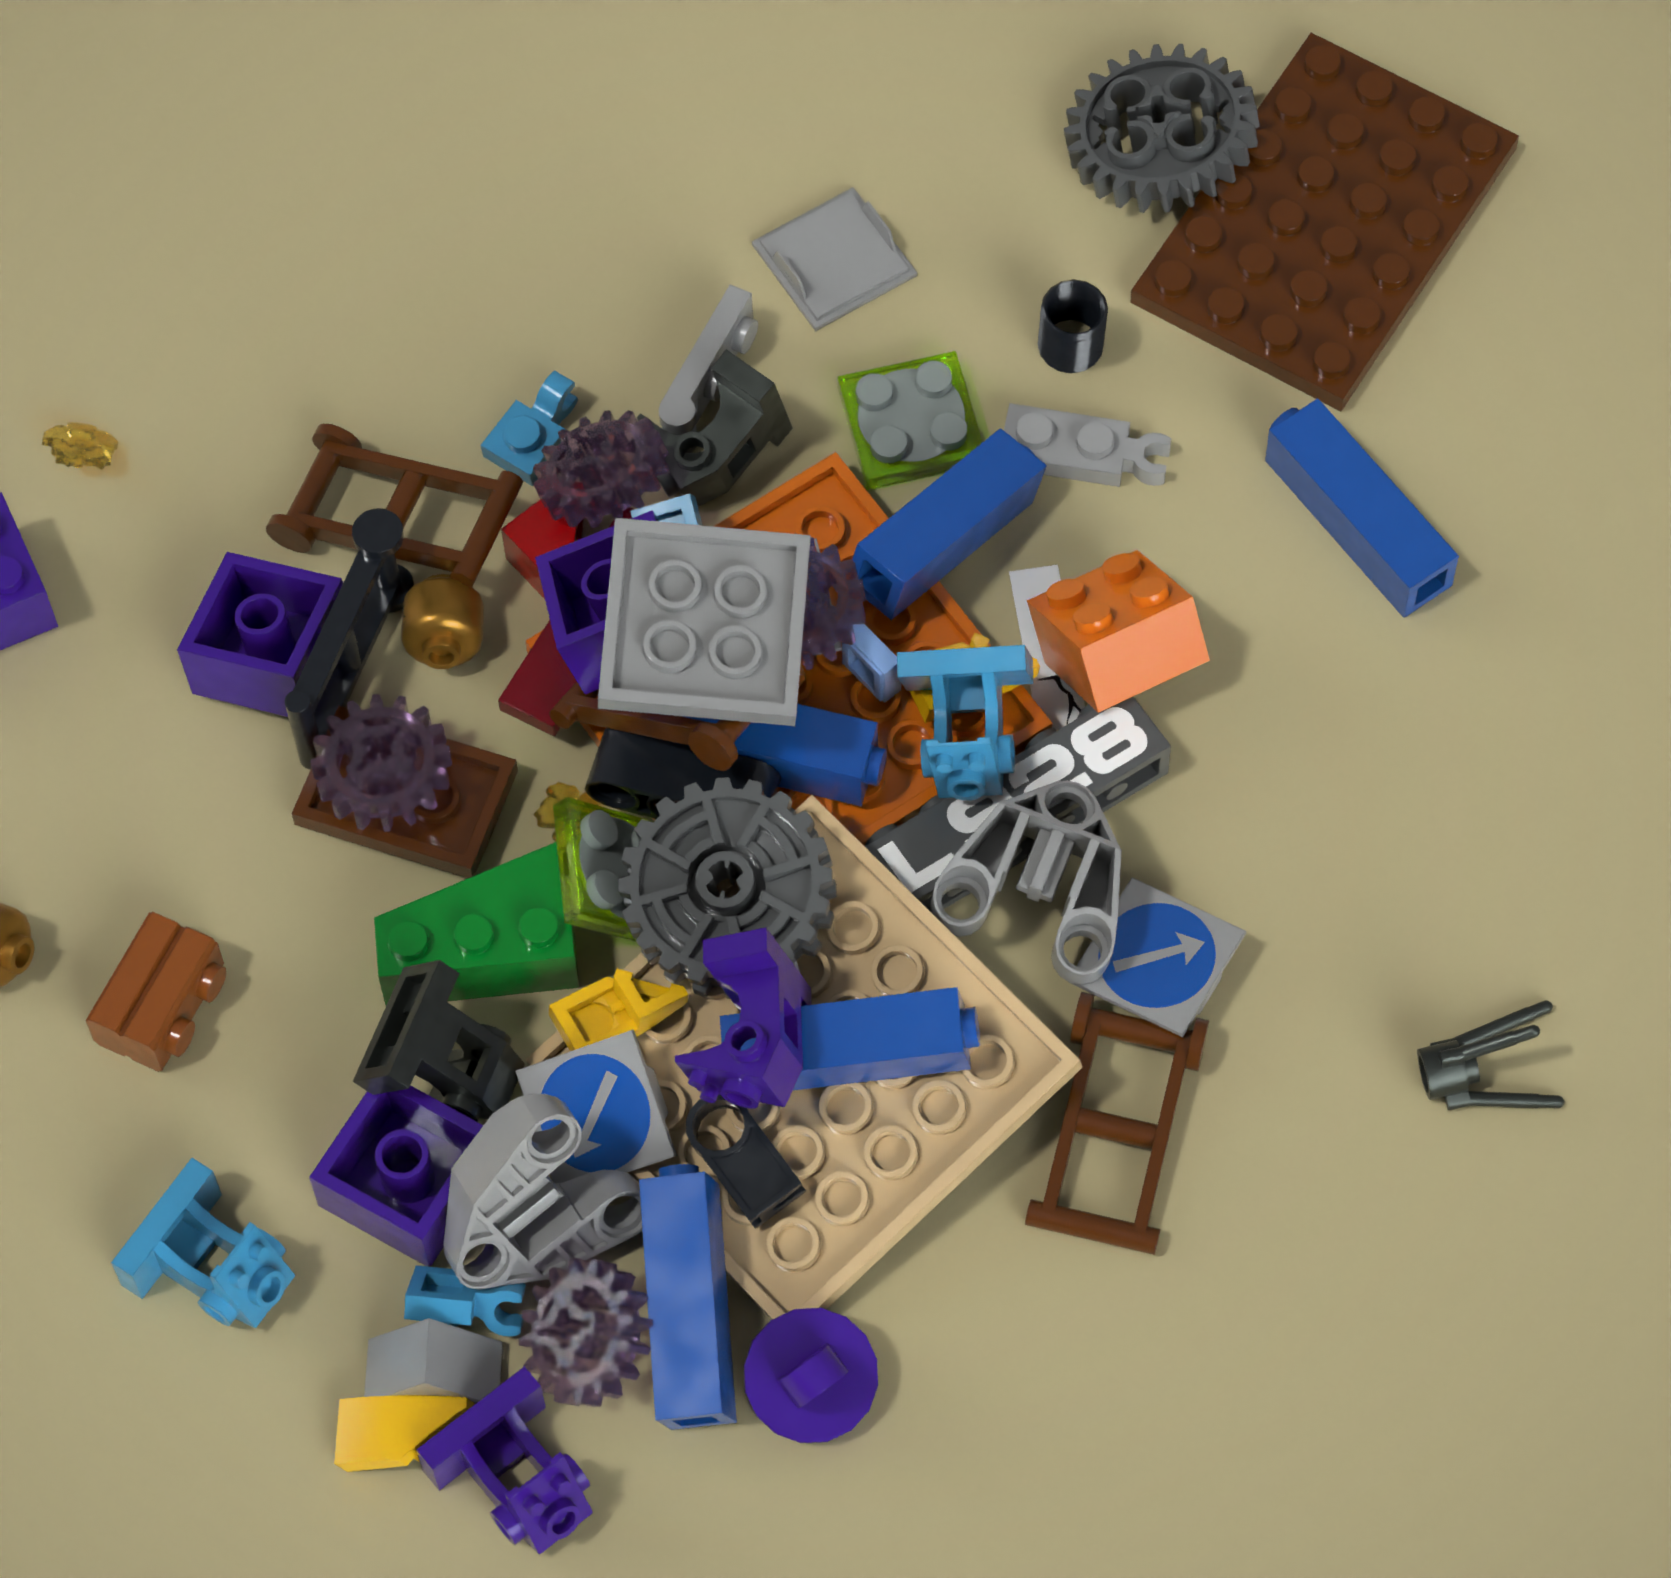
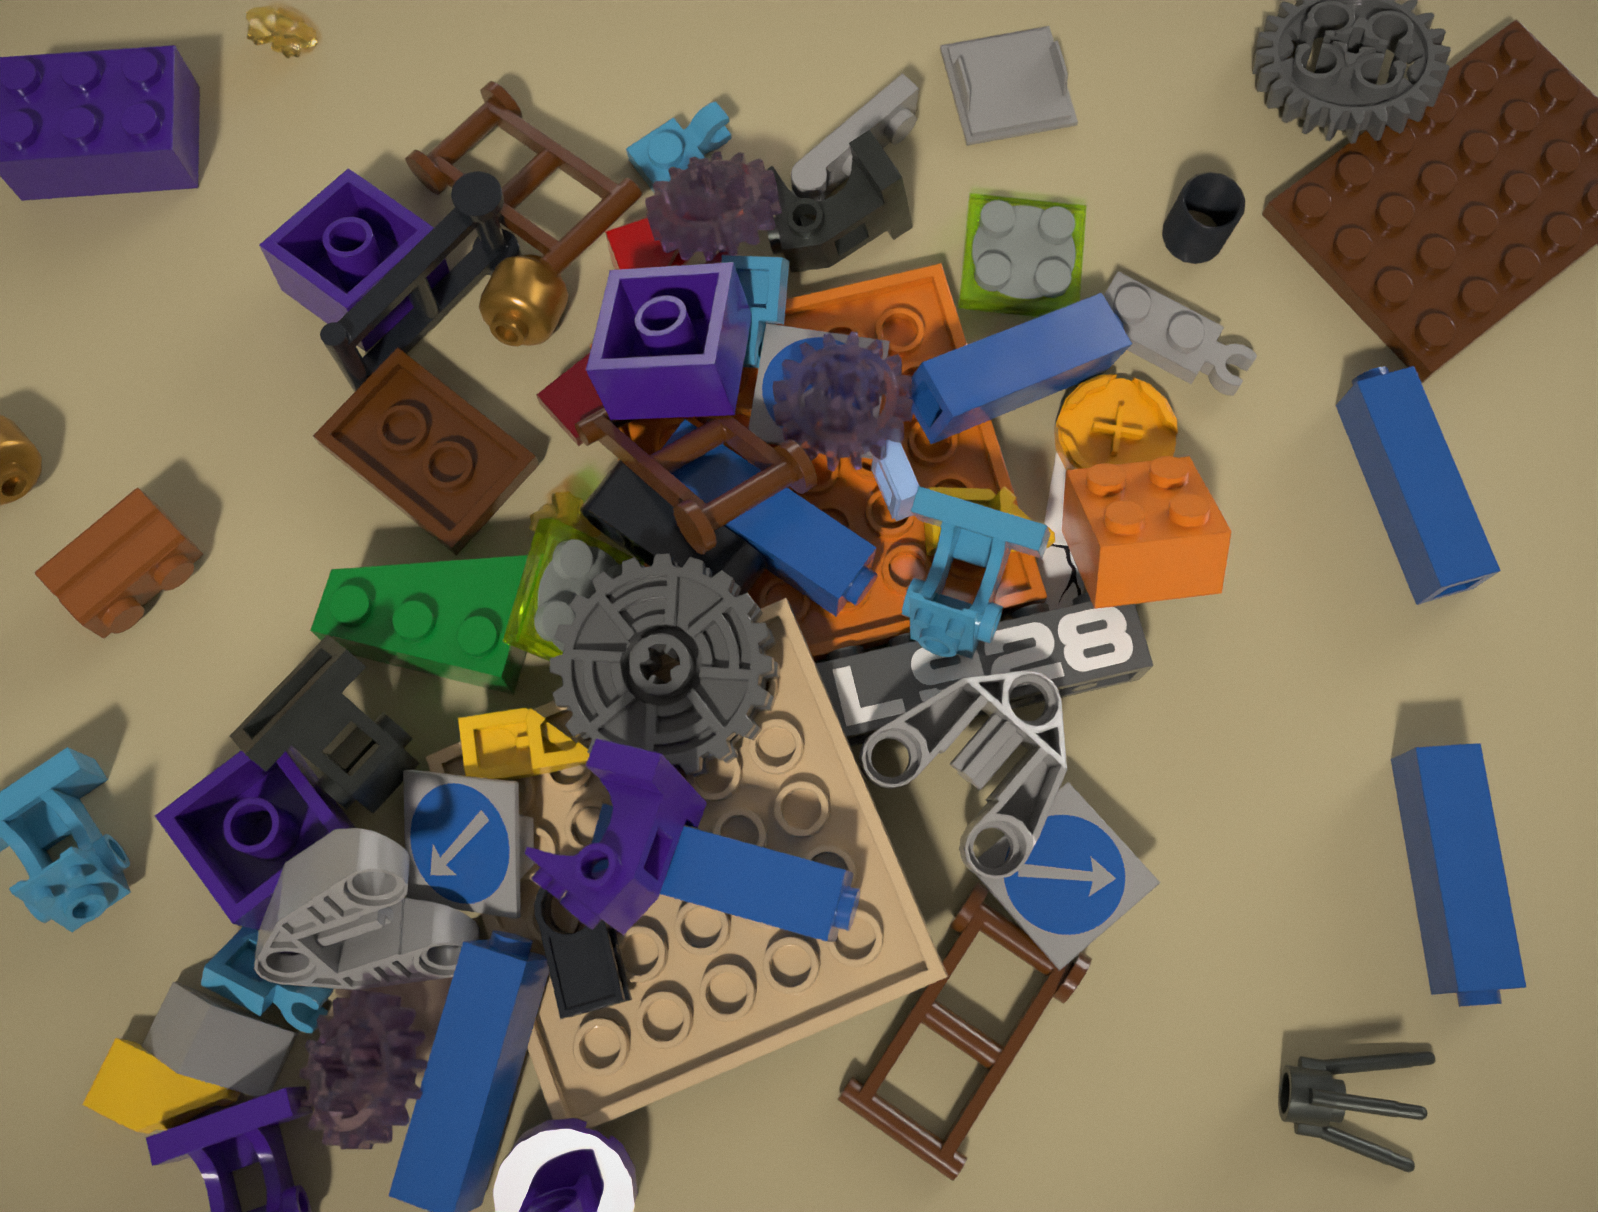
camera: 15 degrees right, 10 degrees up
(381, 766) = (397, 389): clear purple gear -> none
(704, 622) = (728, 396): light grey plate -> none
(1056, 544) = (1114, 424): none -> light orange tile
(1512, 834) = (1457, 873): none -> blue brick

